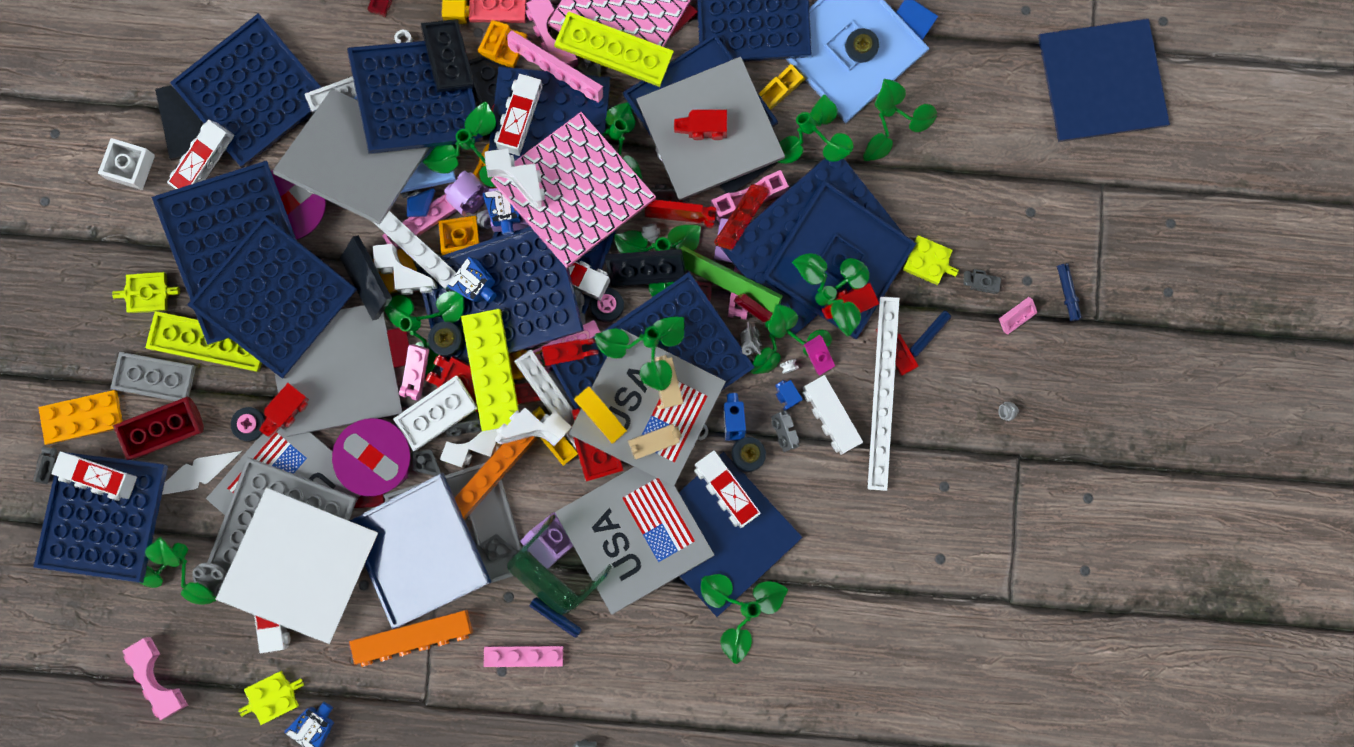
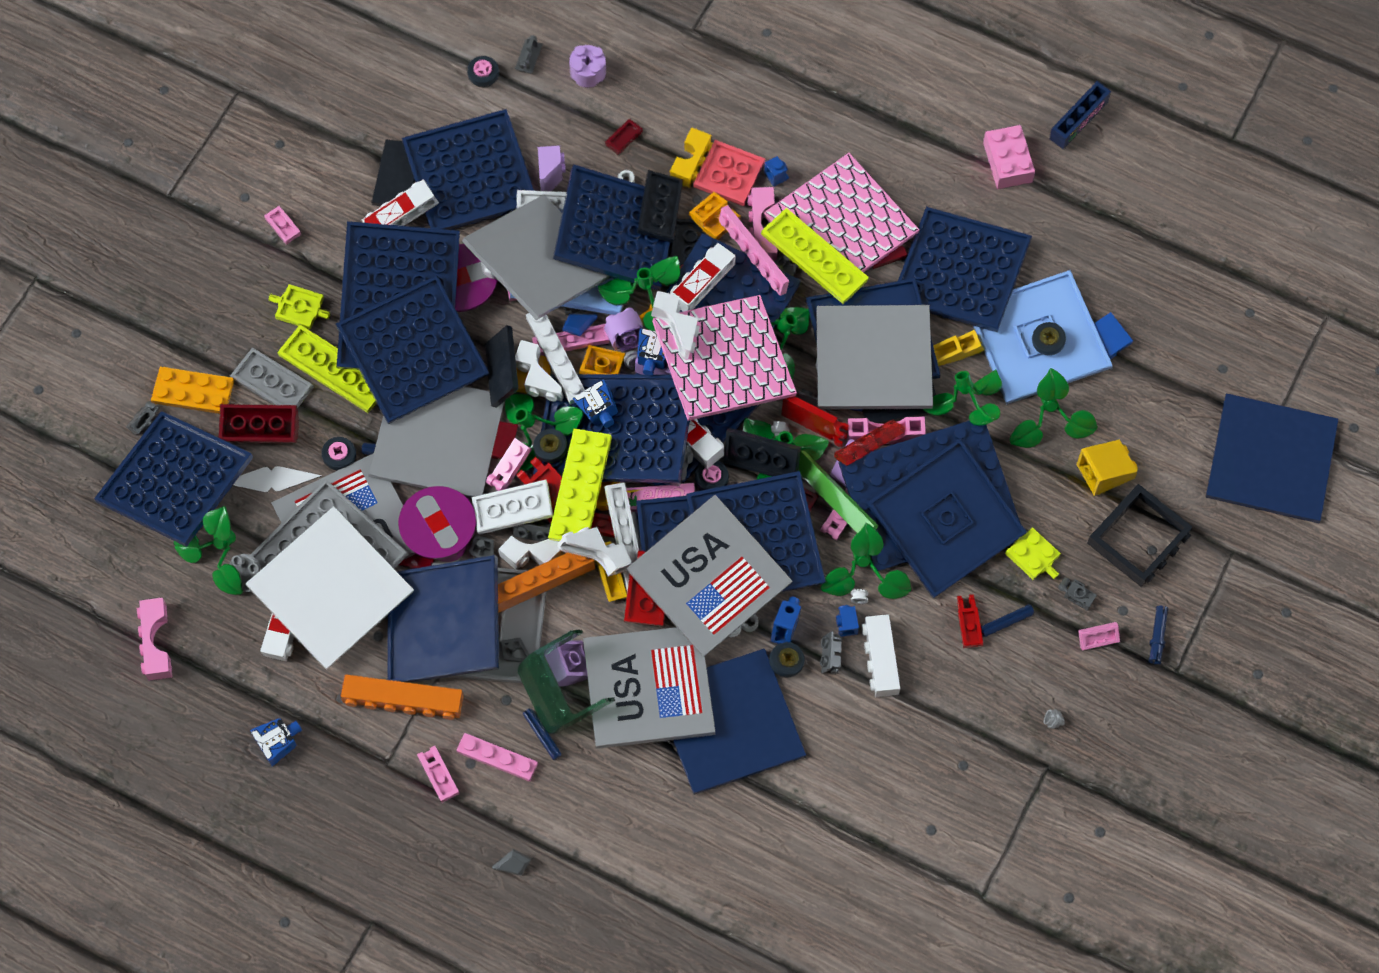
camera: 25 degrees right, 15 degrees down
(93, 216) = (282, 225): none -> bright pink plate
(94, 475) = (185, 439): white brick -> none
(126, 164) = (332, 191): white brick -> none
(271, 697) = (250, 699): neon yellow plate -> none
(283, 409) = (378, 448): red hinge -> none
(326, 57) = (550, 167): none -> lavender slope
(476, 696) = (438, 774): none -> bright pink plate
(567, 351) = (657, 498): red hinge -> none
(600, 414) = (662, 560): yellow slope -> none
(654, 374) = (729, 541): green plant -> none
(654, 441) = (703, 605): tan brick -> none
(672, 394) = (736, 557): tan brick -> none
(703, 124) = (868, 349): red hinge -> none
(727, 489) = (752, 680): white brick -> none
(750, 340) = (832, 557): light grey hinge -> none
(753, 307) = (844, 525): dark red tile -> none
(768, 598) = (705, 767): green plant -> none
(819, 355) = (891, 595): dark pink plate -> none
(856, 273) = (956, 532): green plant -> none
(863, 299) = (941, 559): red hinge -> none
(883, 393) = (937, 654): white plate -> none
(962, 149) = (1106, 466): none -> yellow slope
(1007, 236) = (1140, 578): none -> black window

